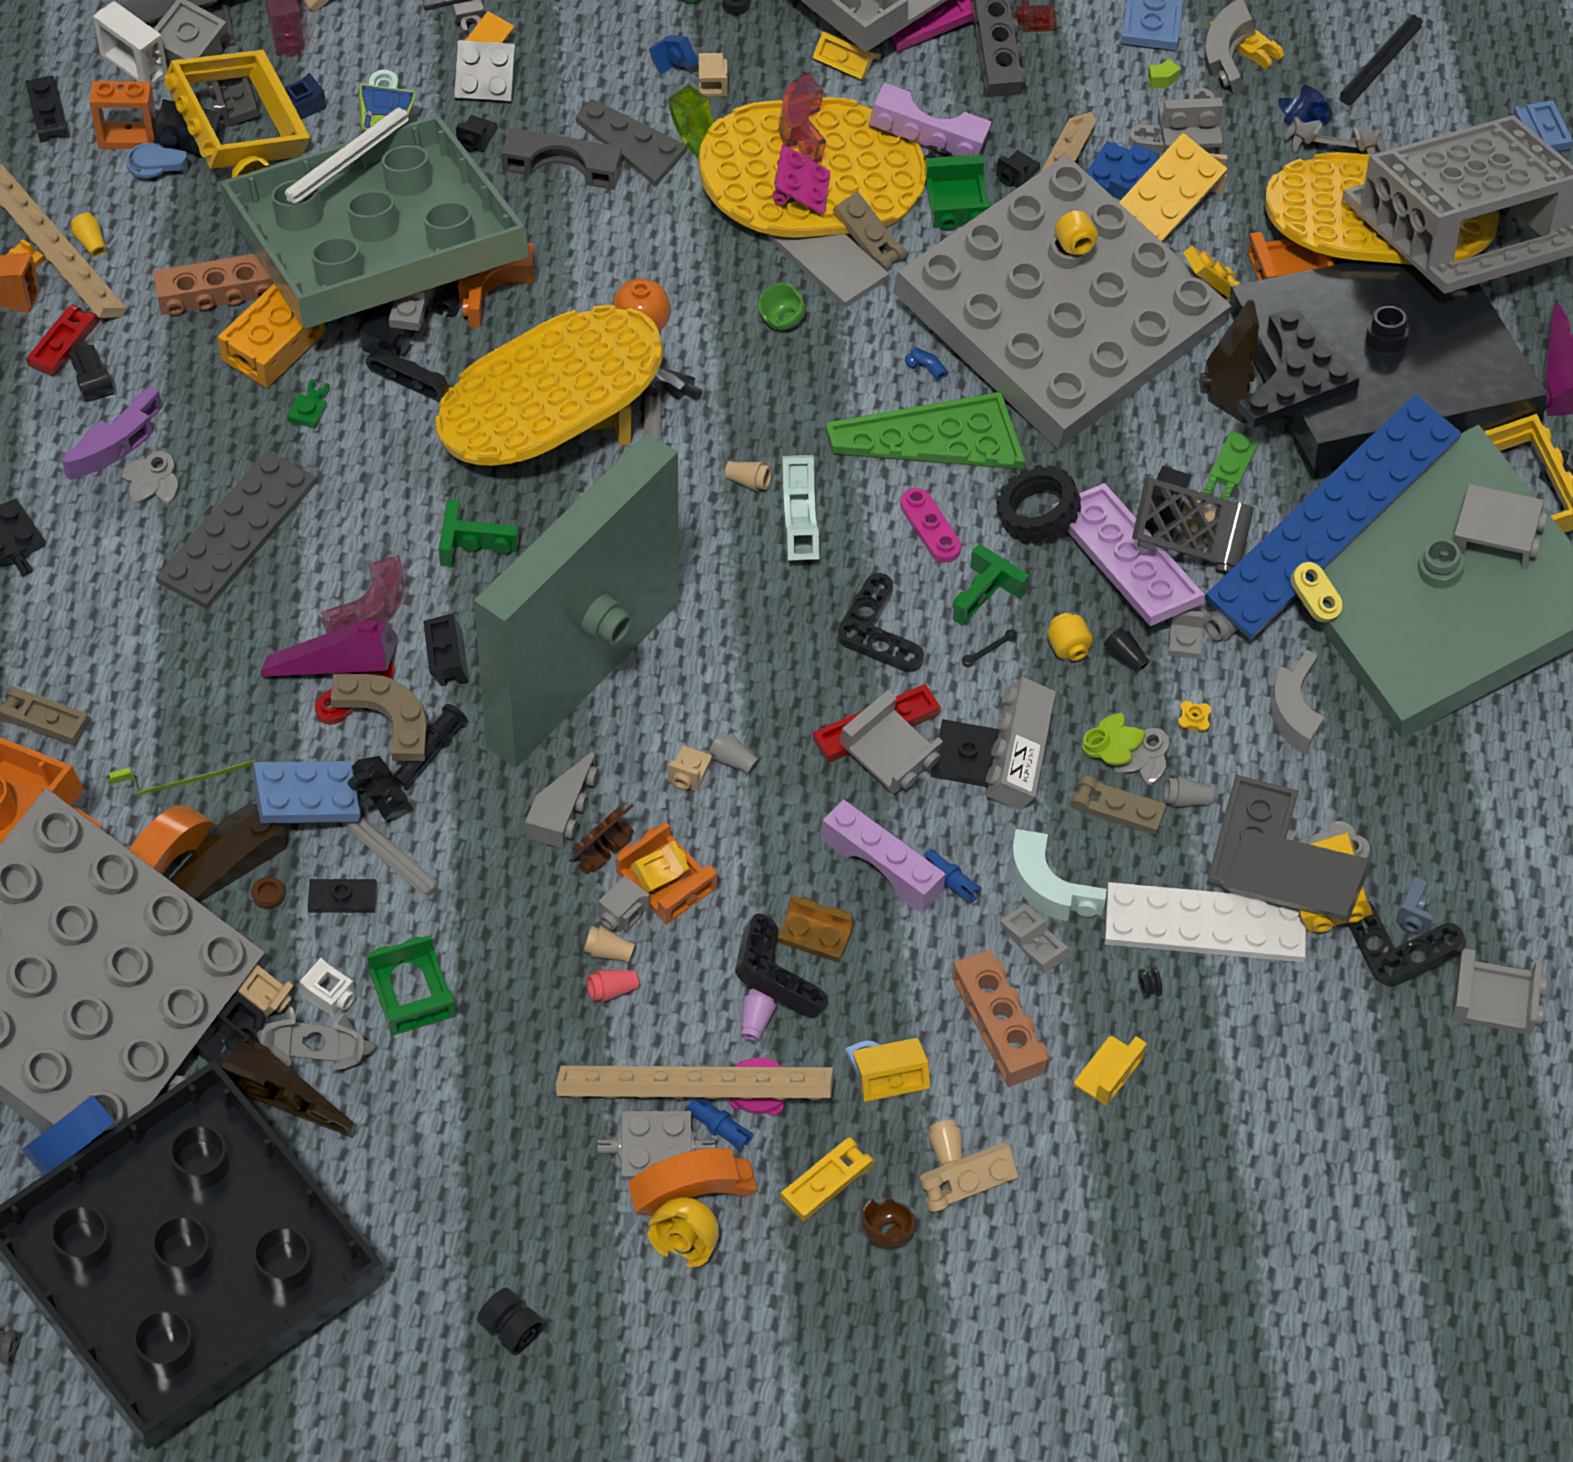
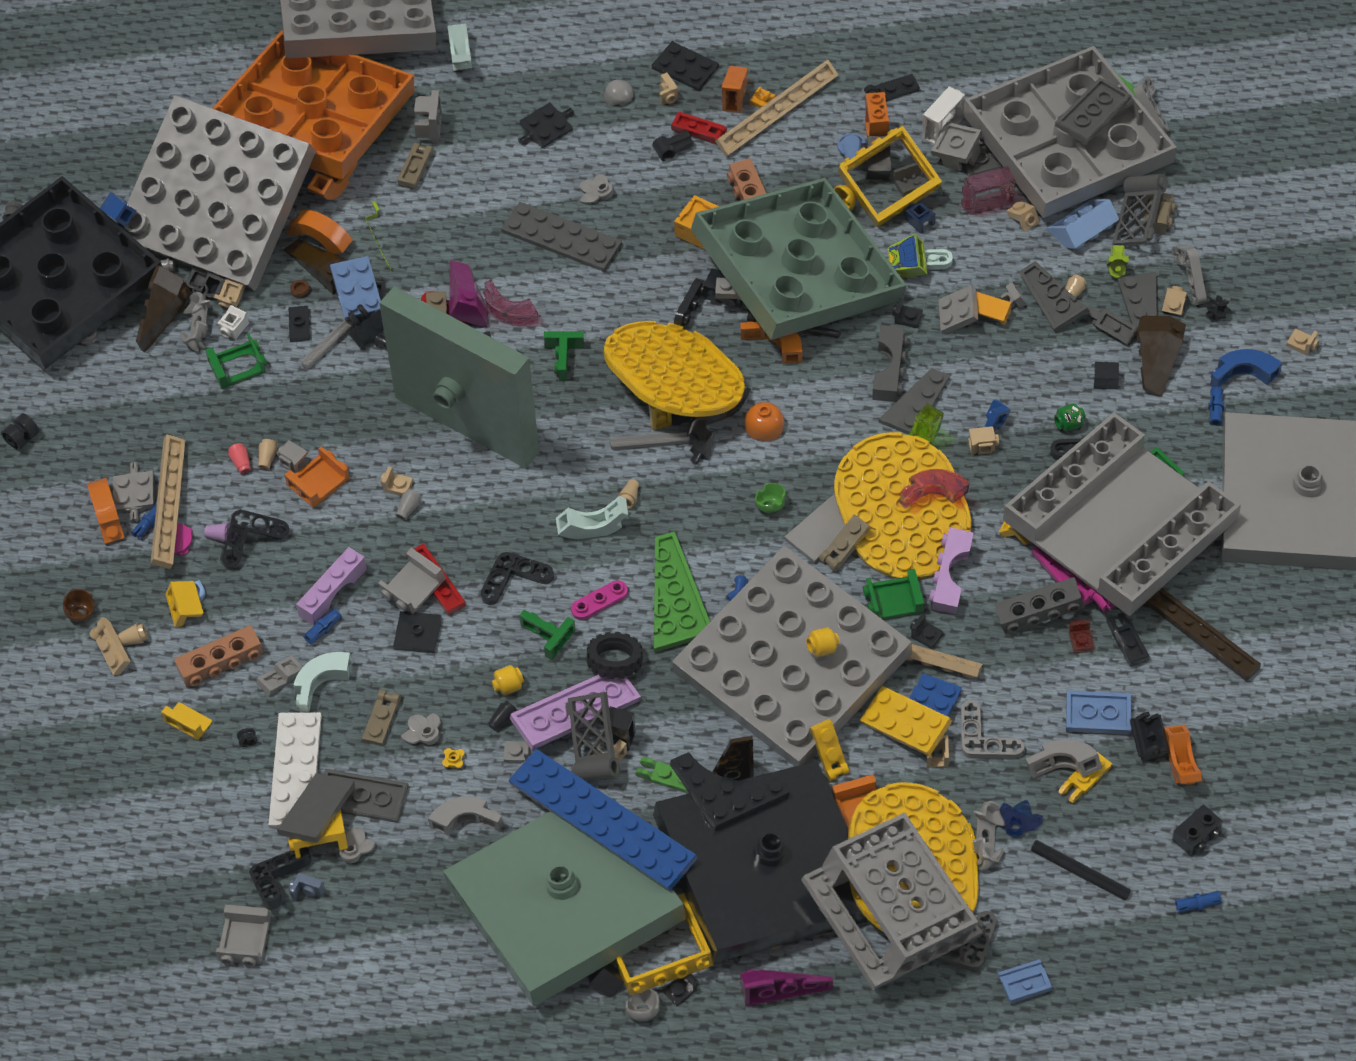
camera: 90 degrees right, 0 degrees up
(88, 232) = (786, 126): yellow cone -> none
(110, 443) = (617, 162): medium lavender slope -> none
(310, 408) = (660, 257): green plate -> none
(346, 156) = (850, 235): white axle -> none
(556, 807) = (360, 417): light grey slope -> none
(606, 837) = (337, 442): reddish brown hinge -> none
(660, 867) = (316, 470): yellow bracket -> none
(682, 1224) = (74, 507): yellow cylinder -> none
(800, 180) = (874, 492): dark pink hinge -> none
(816, 929) = (281, 558): pearl gold bracket -> none
(826, 1179) = (110, 576): yellow plate -> none
(935, 152) = (926, 581): black bush -> none
(968, 660) = (492, 629): black hinge -> none
(1020, 743) = (420, 655): light grey brick -> none
(1112, 740) = (427, 709): lime plate -> none
(1163, 74) = (1036, 721): lime piece -> none
(1184, 792) = (390, 752): light grey cone -> none
(1195, 118) = (978, 733): light grey bracket -> none
(1314, 592) = (537, 812): light yellow plate -> none
(1501, 521) = (586, 911): light grey panel -> none

